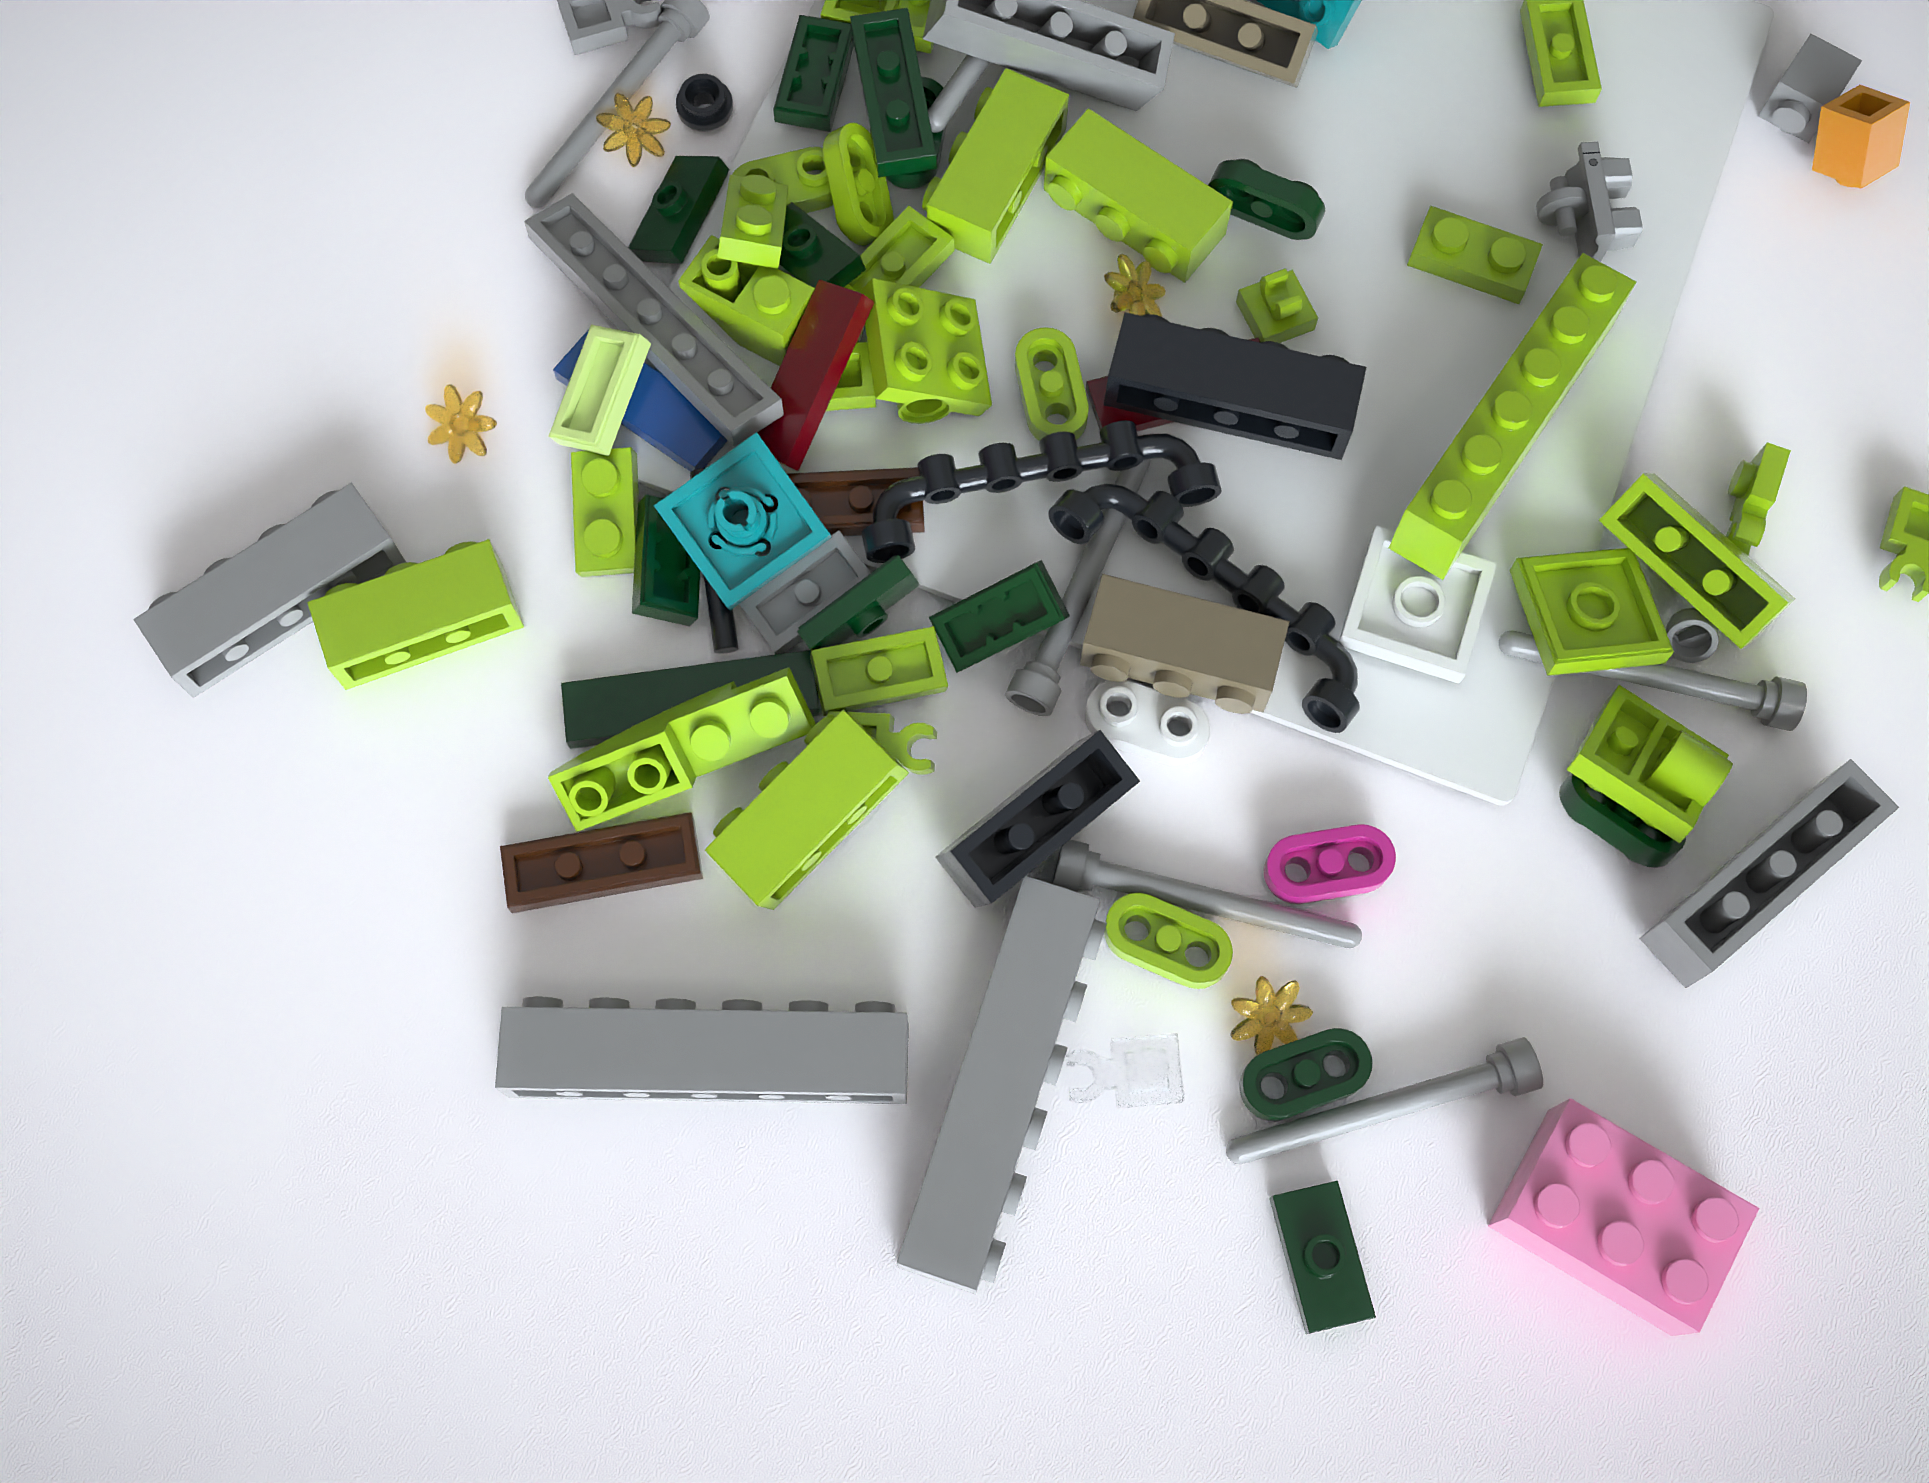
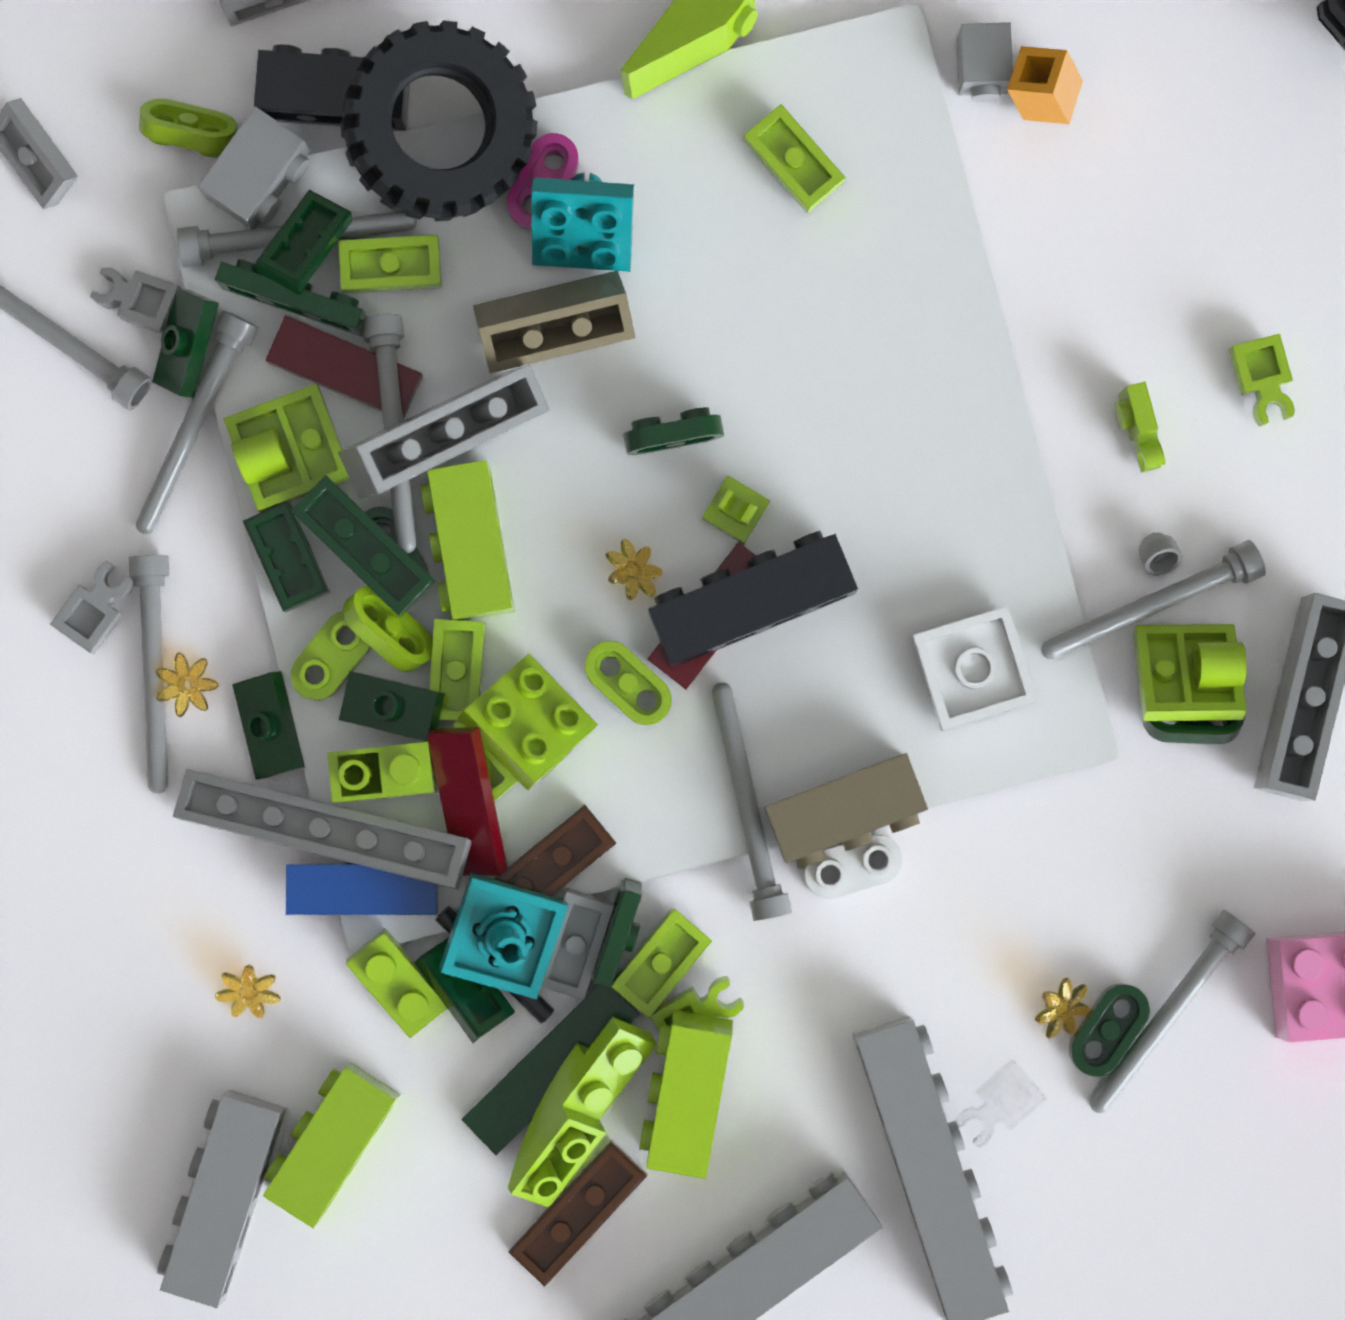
camera: 35 degrees left, 15 degrees up
(599, 389) = (335, 912): yellowish green tile -> none
(702, 90) = (204, 623): black plate -> none
(753, 221) = (346, 719): lime plate -> none
(999, 616) = (712, 873): dark green plate -> none
(1037, 819) = (836, 994): black brick -> none
(1059, 461) = (643, 772): black bar -> none
(1083, 869) = (883, 997): light grey piece -> none
(1136, 196) = (582, 498): lime brick -> none
(1169, 936) = (967, 1006): lime plate -> none
(1322, 1257) = (1191, 1132): dark green plate -> none
(1327, 865) = (1033, 883): dark pink plate -> none
(1330, 701) = (863, 737): black bar -> none
(1475, 254) = (840, 368): lime plate -> none
(1511, 416) = (952, 492): lime brick -> none
(1582, 204) = (912, 292): light grey hips -> none
(1590, 611) = (1087, 592): lime tile -> none
(1696, 559) = (1133, 504): lime brick -> none

